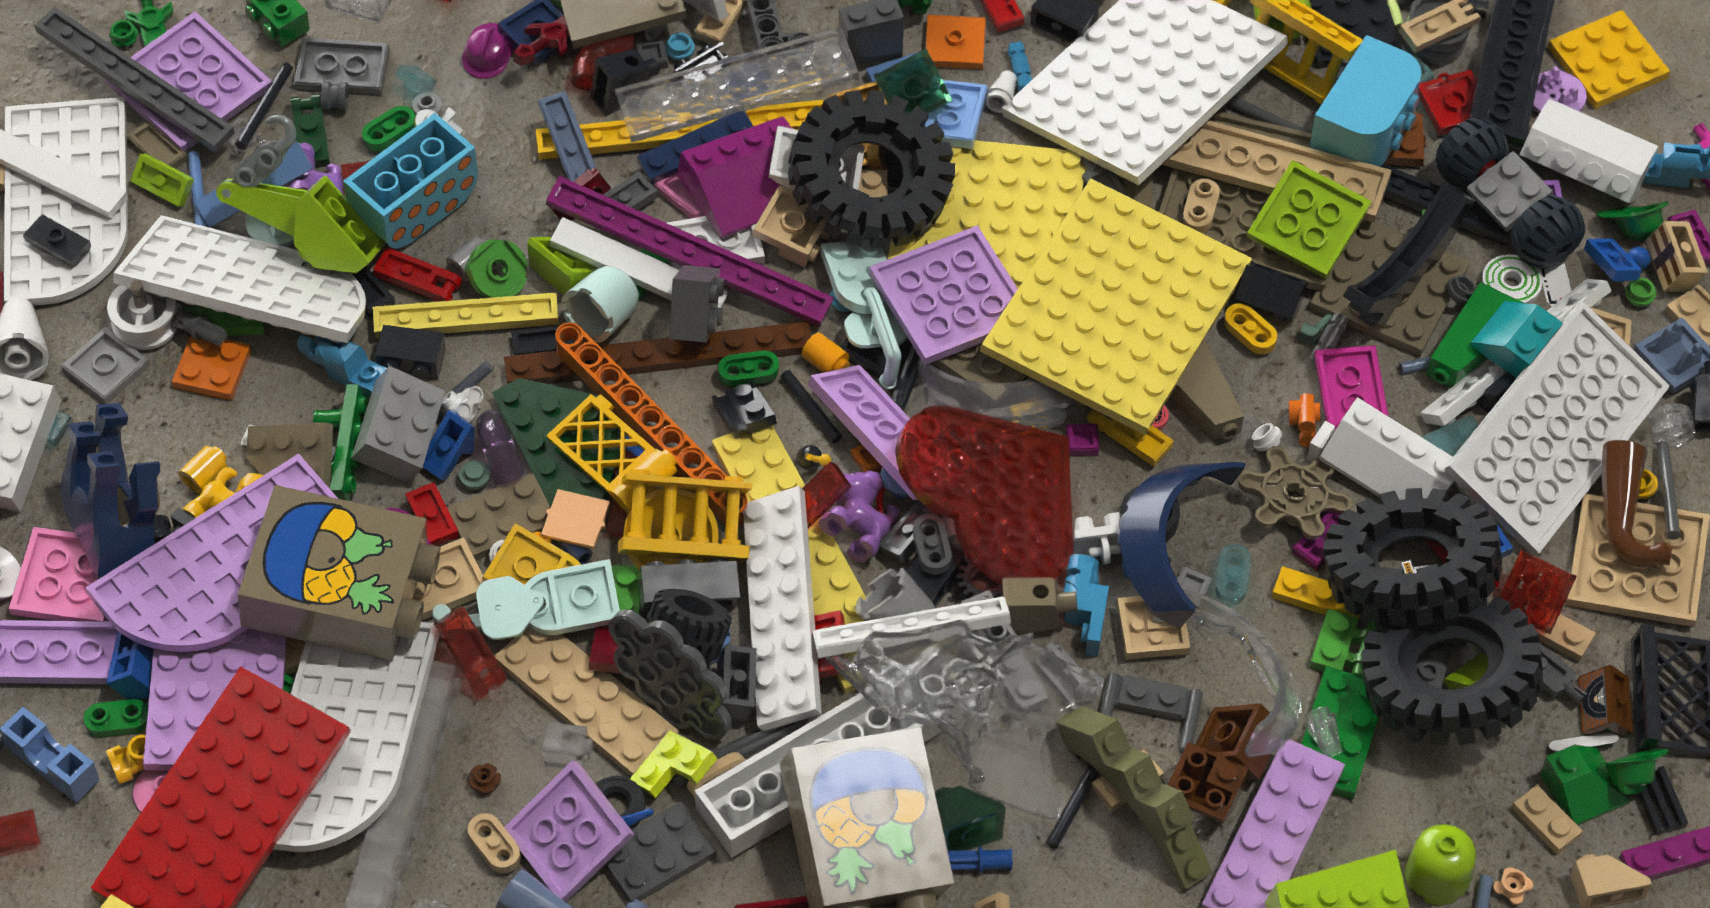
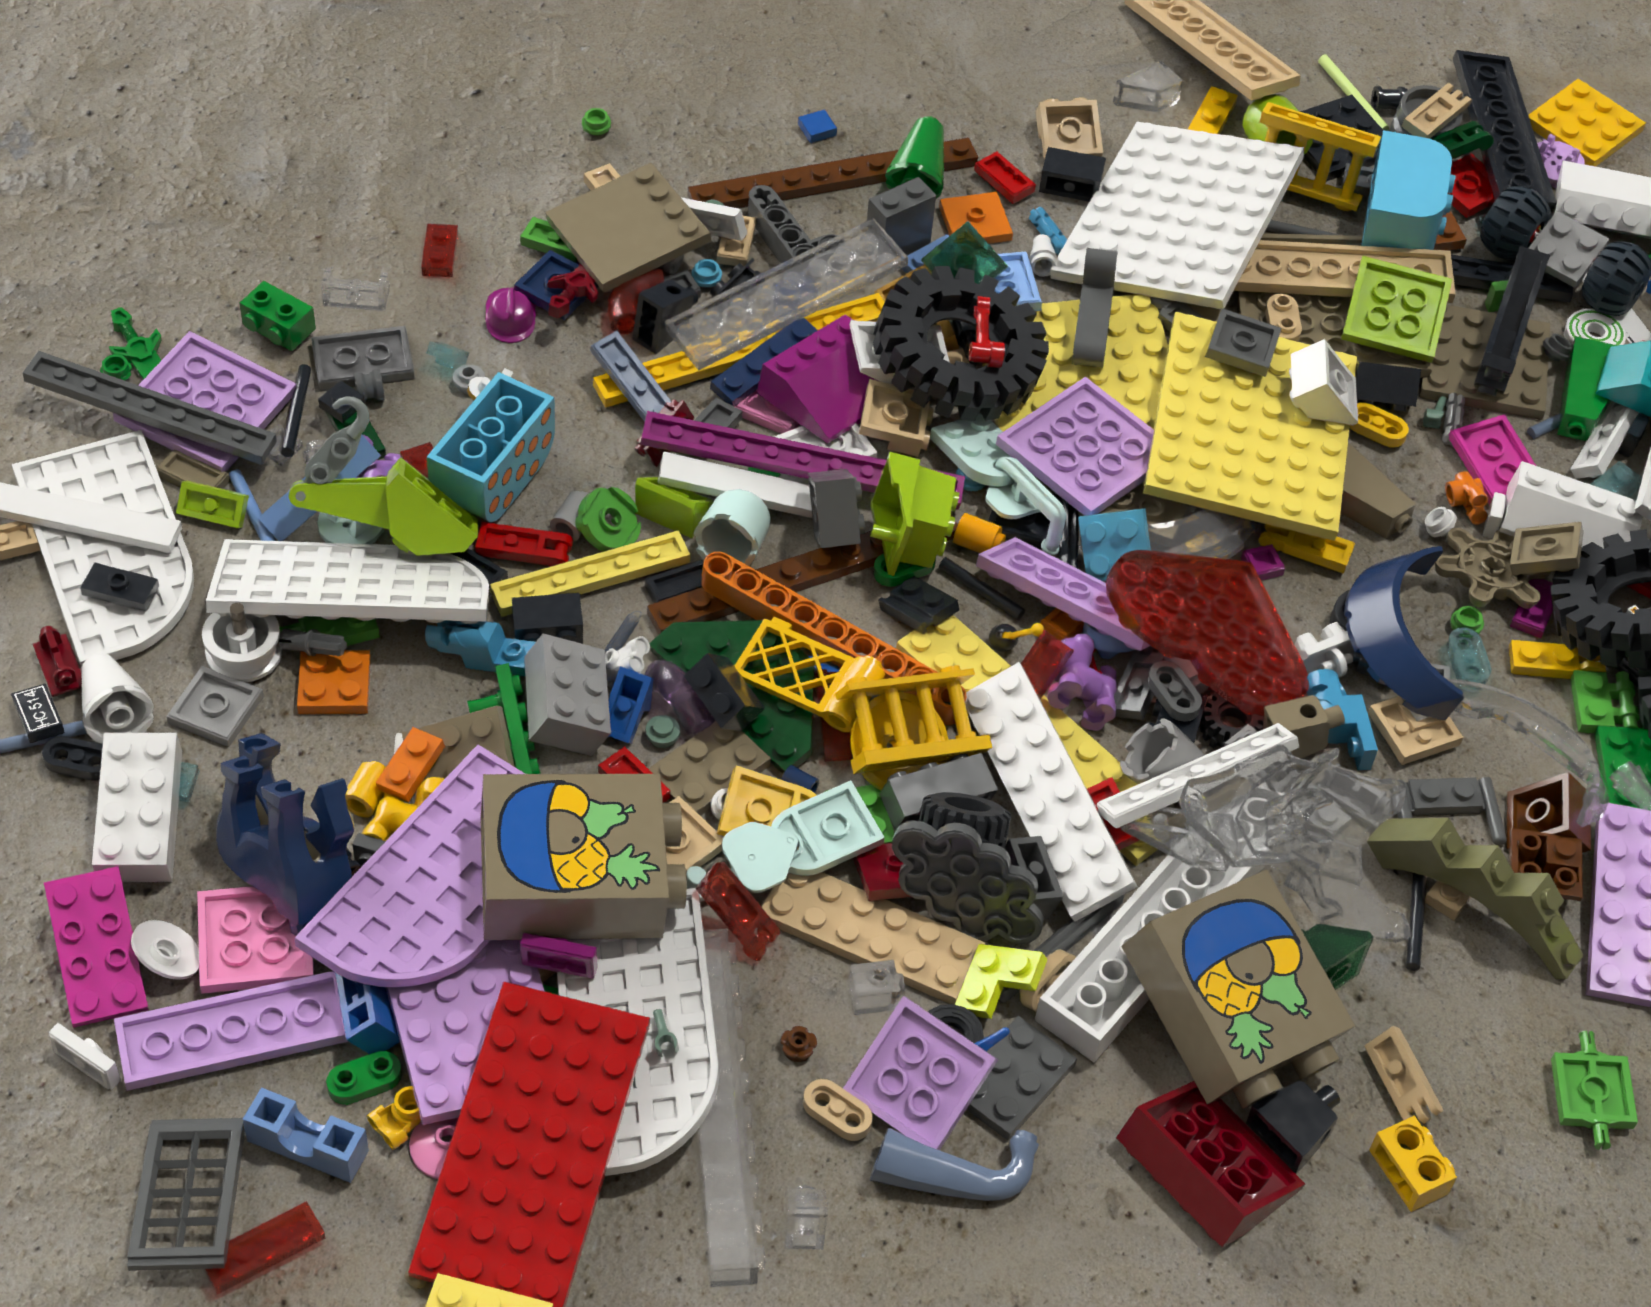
camera: 20 degrees left, 5 degrees down
(242, 457) = (410, 764): none -> orange plate
(299, 654) = (558, 955): none -> magenta plate
(303, 107) = (331, 396): none -> black plate
(360, 743) = (663, 1033): none -> sand green hand
(387, 128) = (433, 409): green plate -> none
(531, 453) = (724, 692): none -> black brick
(575, 519) = (793, 749): light nougat piece -> none
(763, 324) = (912, 512): none -> lime piece
(881, 183) = (984, 349): none -> red brick
(939, 385) = (1110, 536): none -> medium azure plate
(981, 860) = (1362, 996): blue axle -> none
(1017, 159) = (1095, 307): none -> dark grey beam
(1135, 224) = (1243, 342): none -> dark grey plate
(1194, 283) = (1323, 385): none -> white slope
(1250, 537) = (1467, 617): none -> bright green plate
(1346, 487) = (1547, 548): none -> dark tan plate
(1451, 58) = (1465, 139): none -> dark green plate

